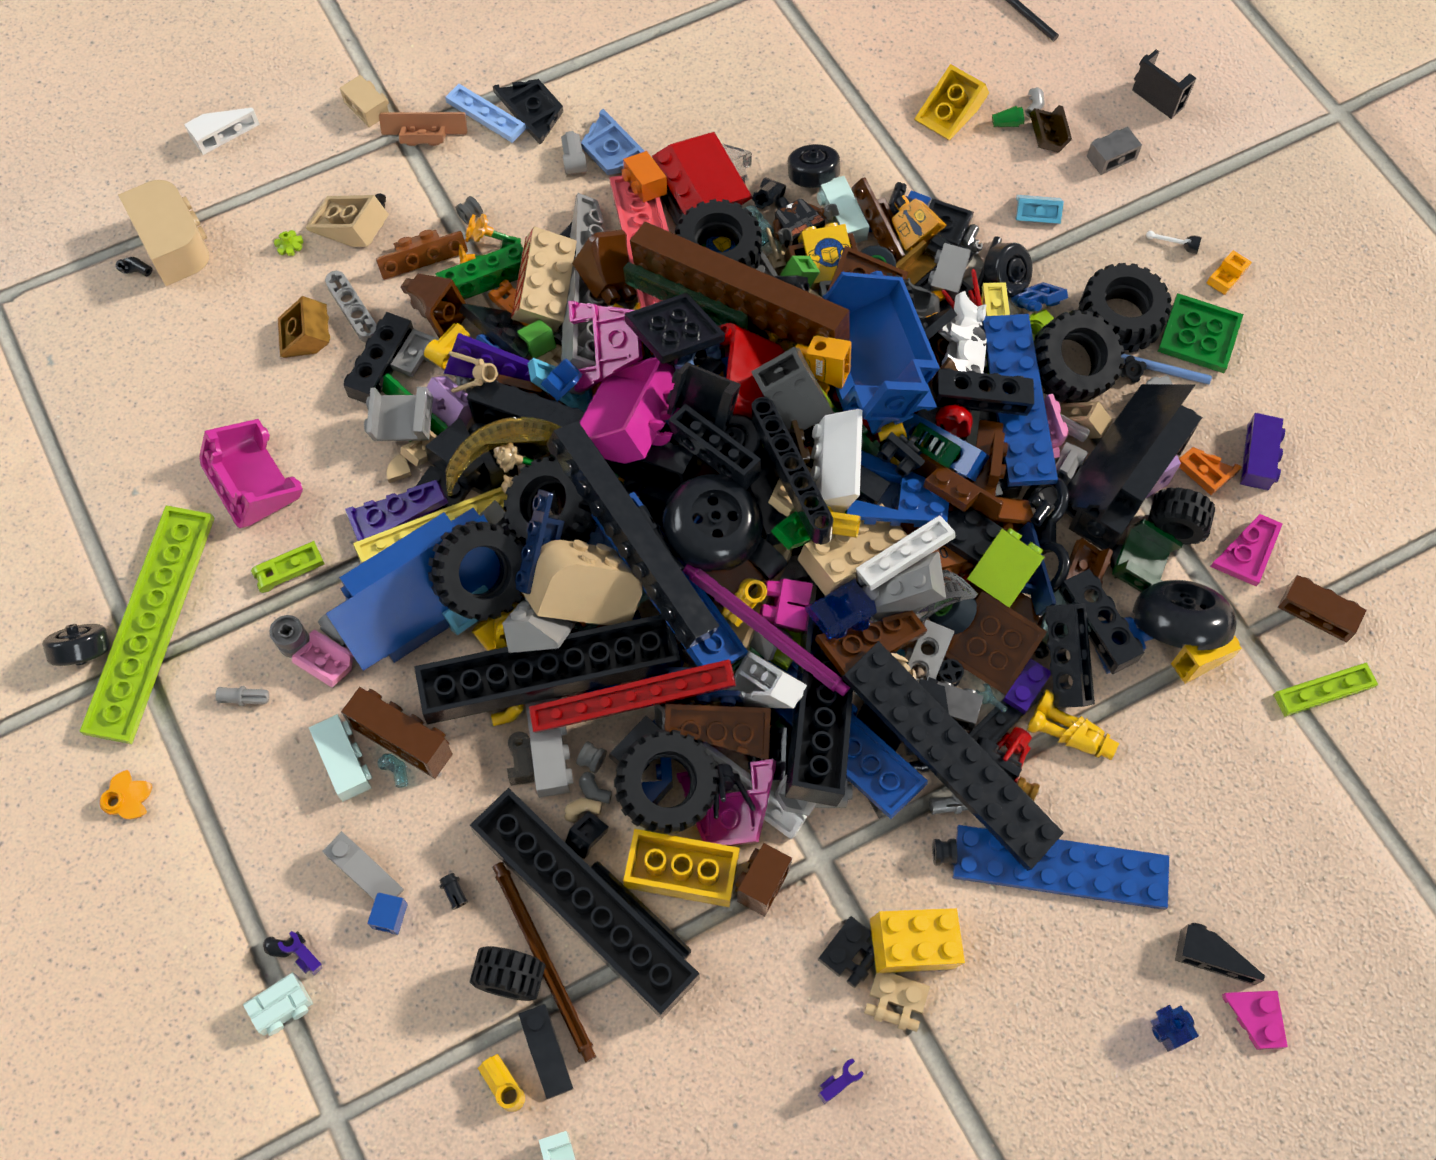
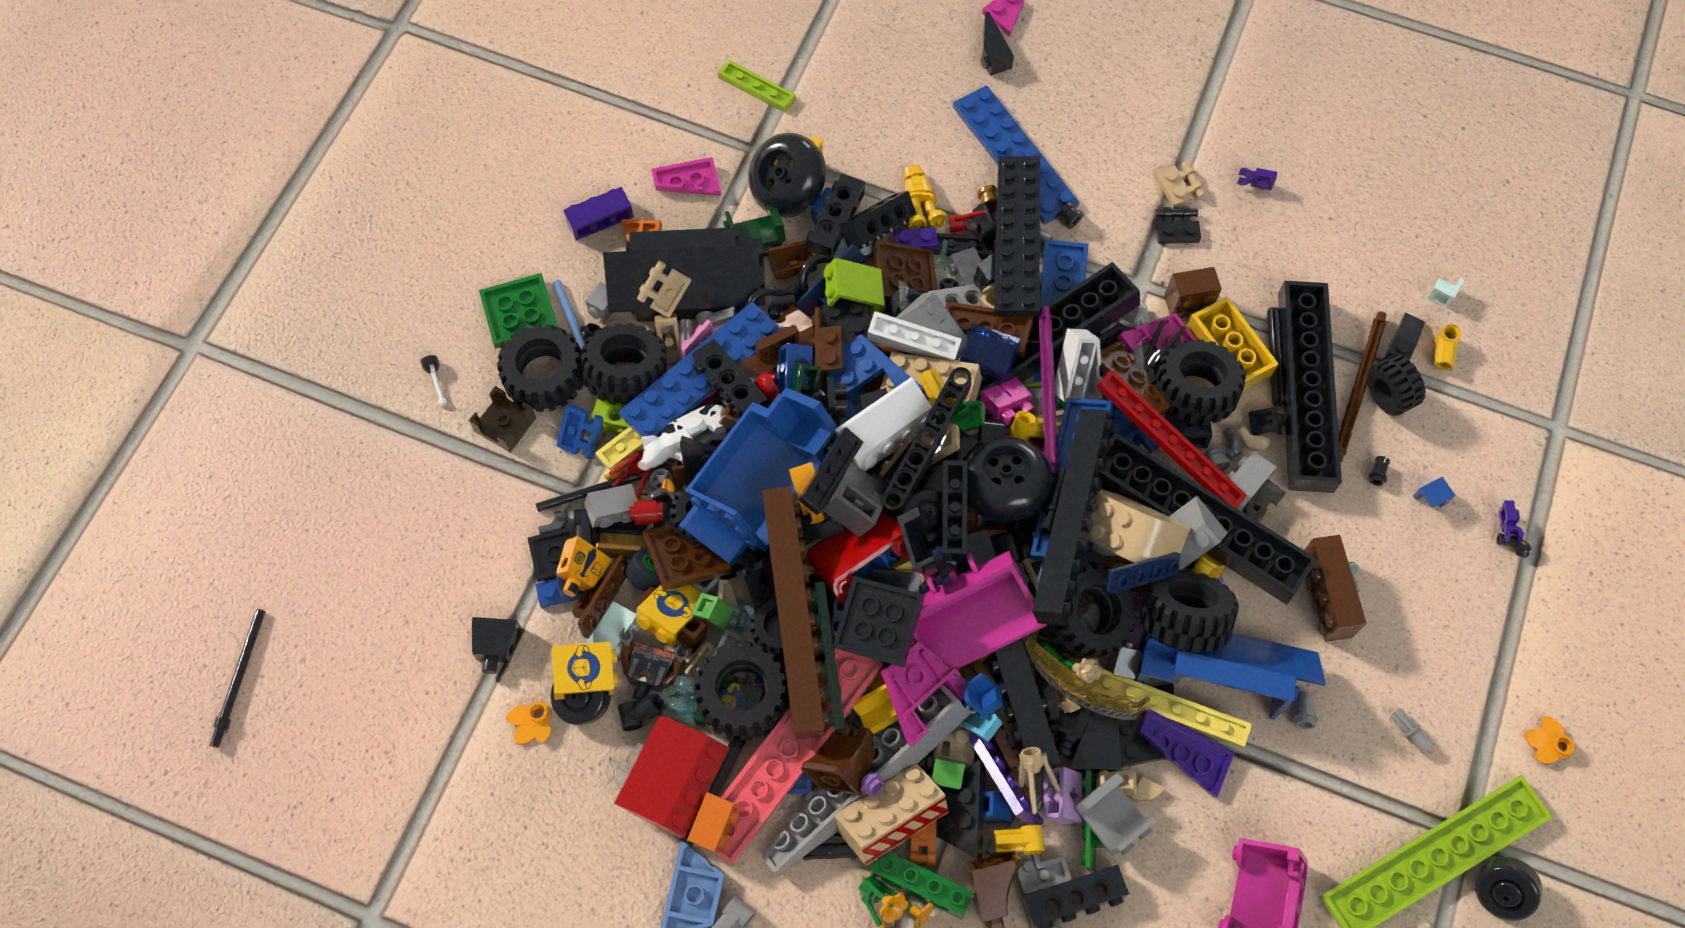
camera: 130 degrees left, 0 degrees up
(278, 1004) = (1547, 510): light aqua brick -> none
(287, 566) = (1298, 794): lime plate -> none
(288, 634) = (1345, 733): flat silver wheel -> none
(324, 659) = (1336, 697): bright pink bracket -> none
(341, 757) = (1381, 617): light aqua brick -> none
(361, 867) = (1428, 538): light grey slope -> none
(571, 269) = (872, 784): none -> medium lavender plate
(823, 134) = (528, 725): none -> light orange plate
(824, 373) = (831, 471): none -> black tile
(825, 165) = (583, 668): none -> yellow panel
(899, 190) = (557, 611): black axle -> none
(906, 146) = (494, 641): none -> black torso
(916, 940) = (1142, 189): yellow brick -> none
(921, 279) = (646, 512): none -> red brick
(952, 102) = (414, 637): yellow slope -> none
(1009, 118) = (392, 580): green cone -> none
(1010, 265) = (569, 472): black wheel -> none
(1037, 98) = (355, 573): light grey arm -> none
(1039, 209) = (478, 496): medium azure panel -> none
(1051, 128) = (383, 539): dark brown bracket -> none
(1092, 256) = (503, 420): none -> dark brown panel
(1114, 150) = (371, 477): flat silver brick -> none
(1124, 423) = (670, 292): none -> tan plate
(1160, 88) = (276, 482): black panel -> none
(1173, 1027) = (1057, 39): clear blue brick -> none
(1183, 514) = (704, 212): black tyre -> none
(1229, 272) = (436, 327): light orange slope -> none
(1322, 608) = (698, 114): reddish brown brick -> none

